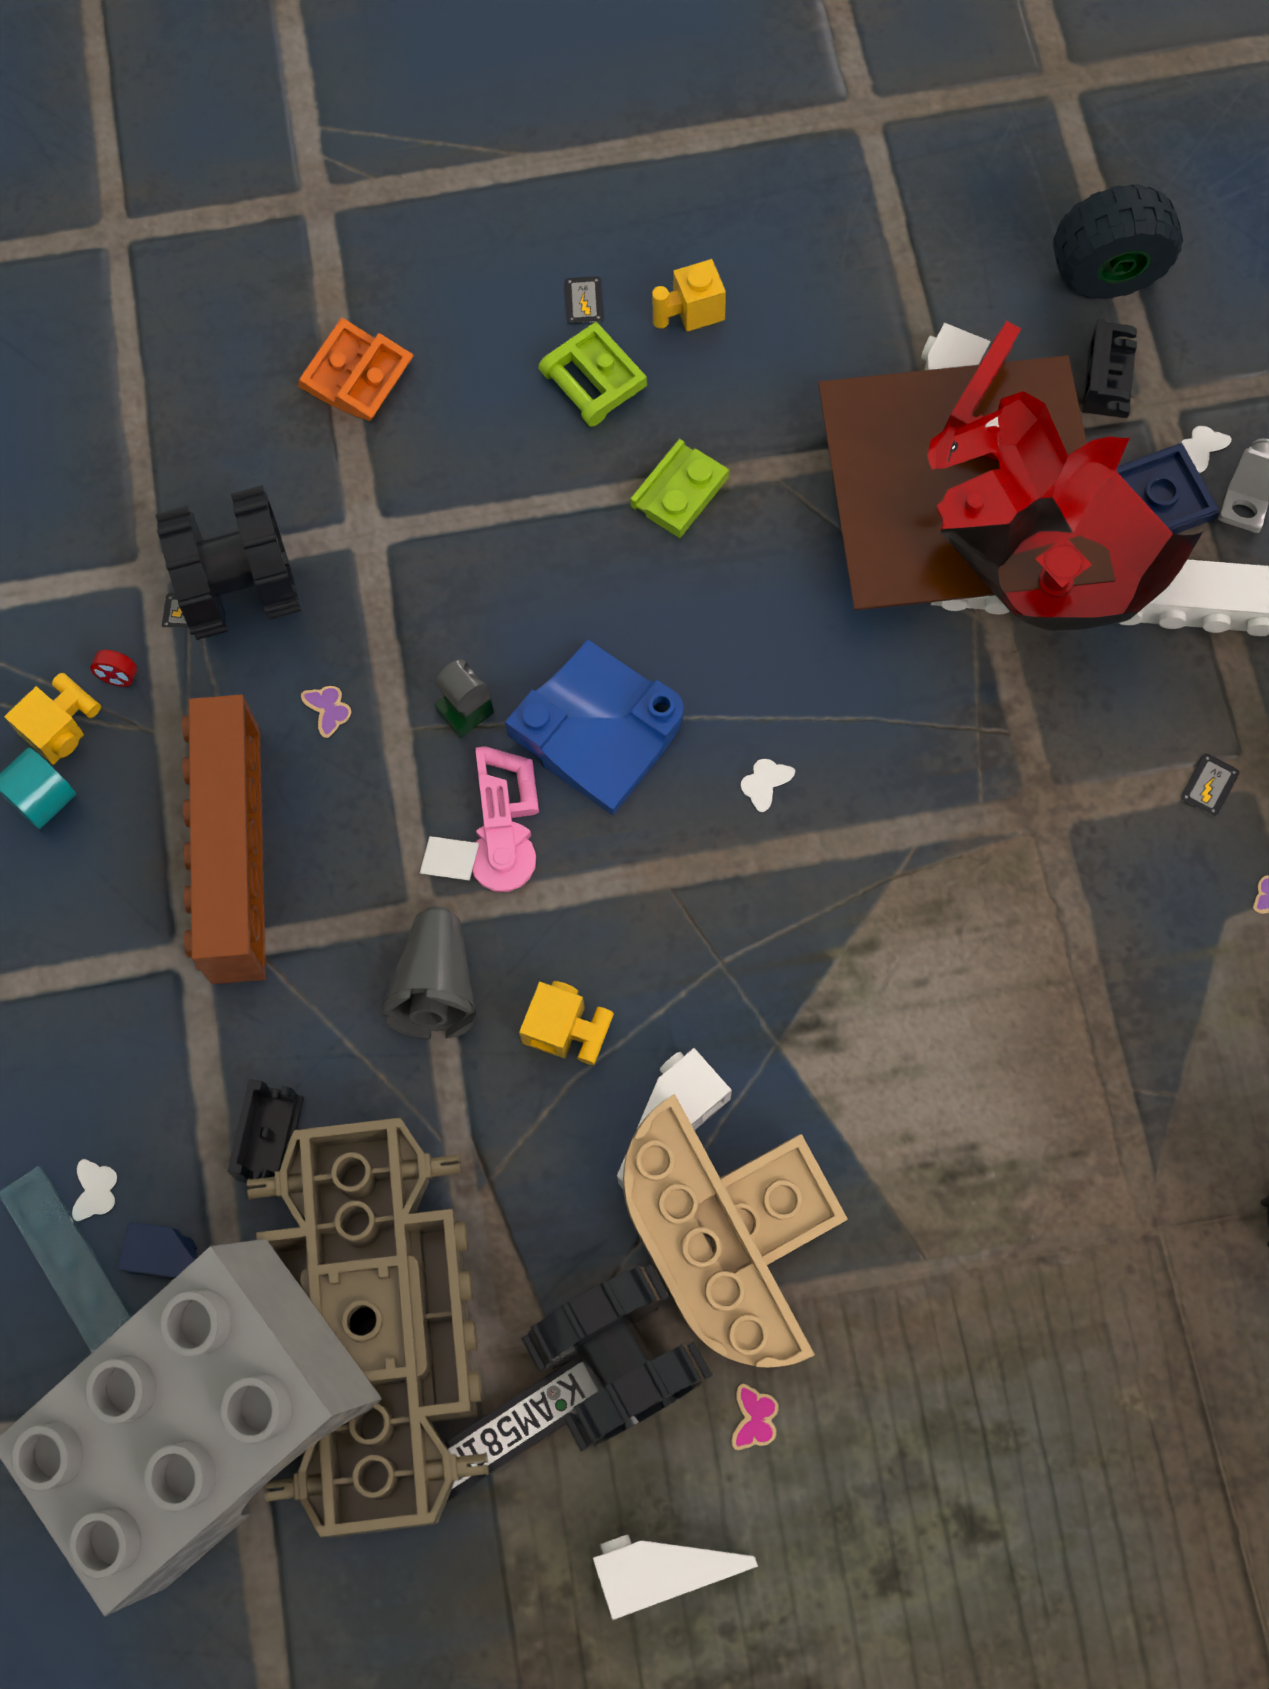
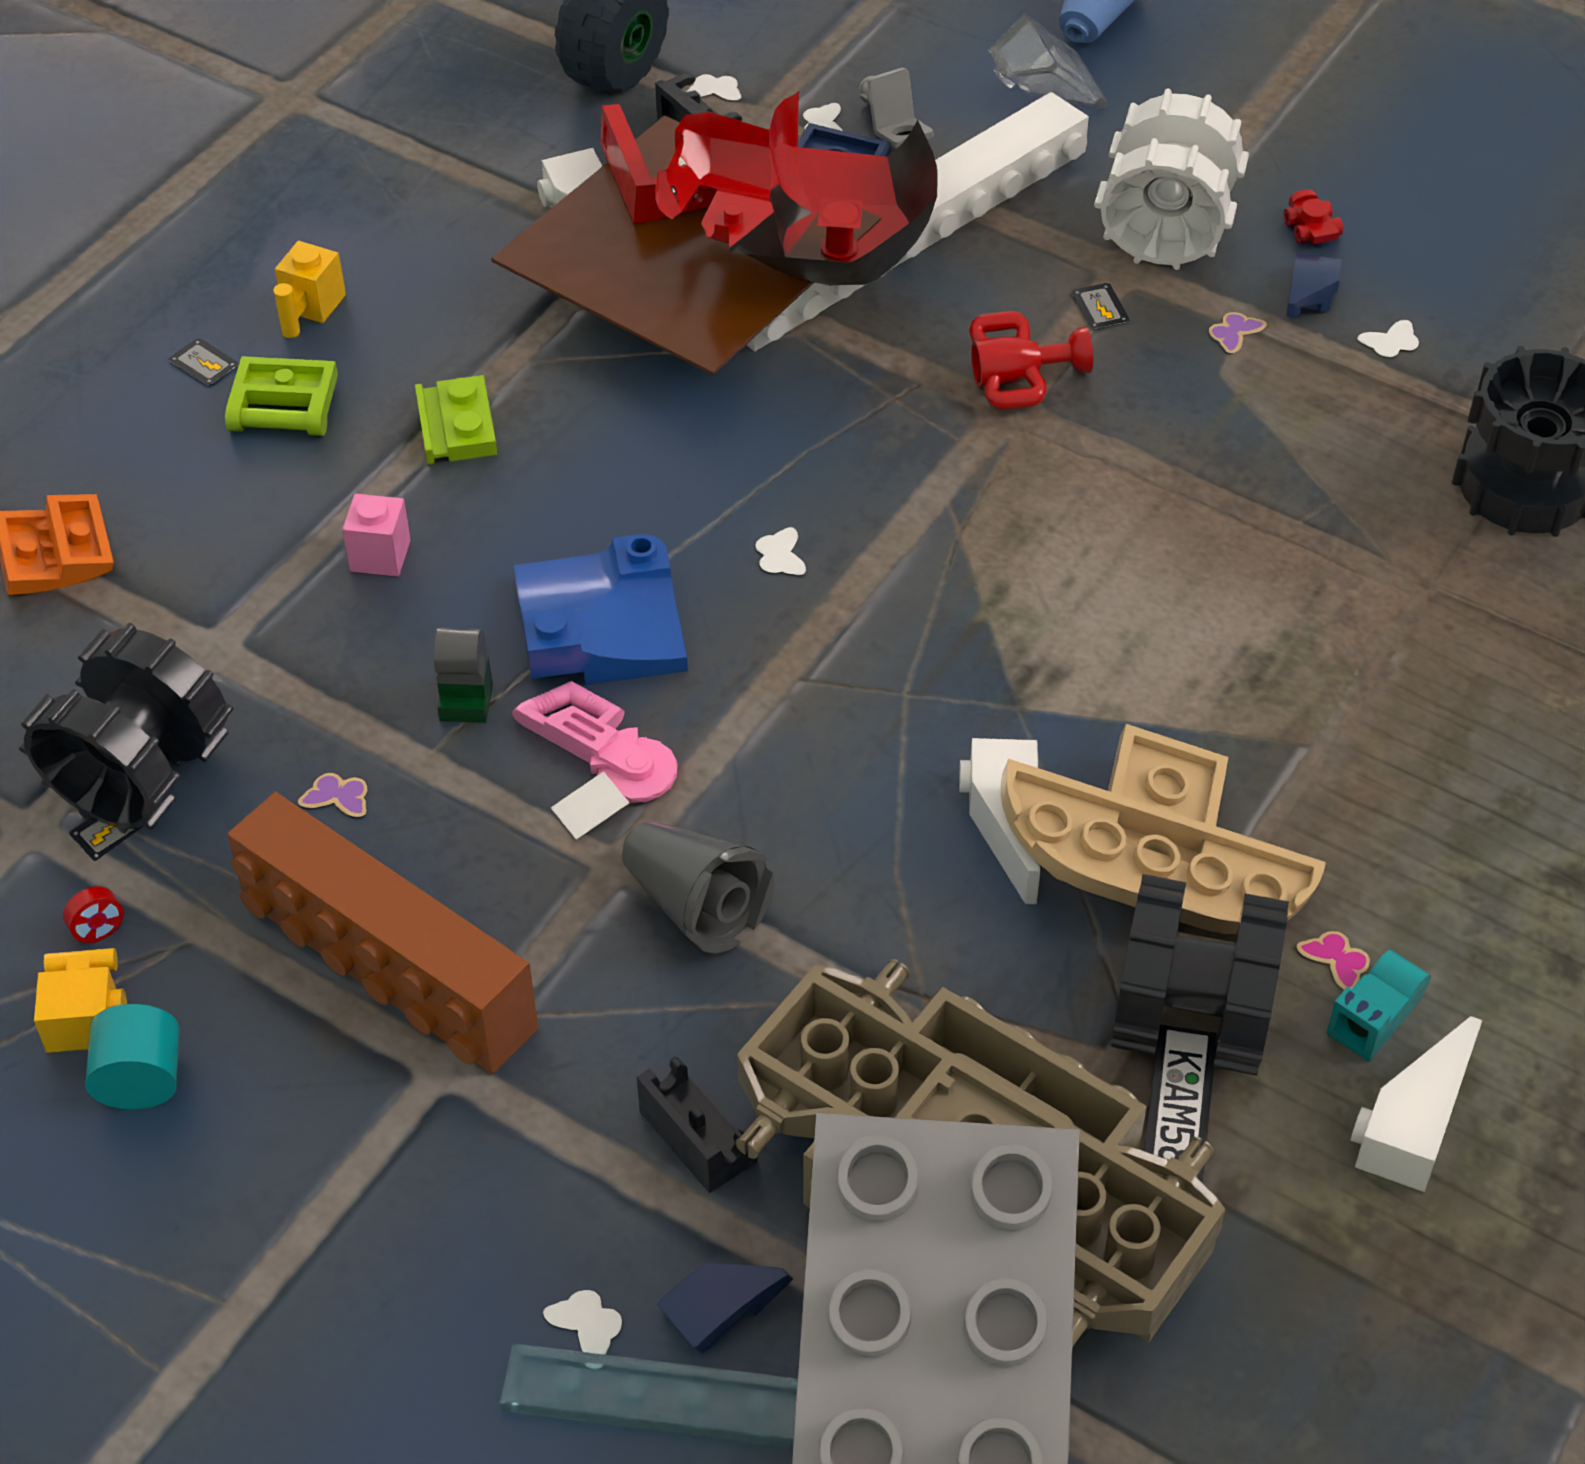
camera: 50 degrees left, 20 degrees down
(528, 540) = (376, 535): none -> bright pink brick
(556, 1021) = (836, 830): yellow brick -> none
(731, 1479) = (1378, 1004): none -> teal leg
(1087, 780) = (1018, 358): none -> red piece
(1164, 350) = (722, 87): none -> white sticker

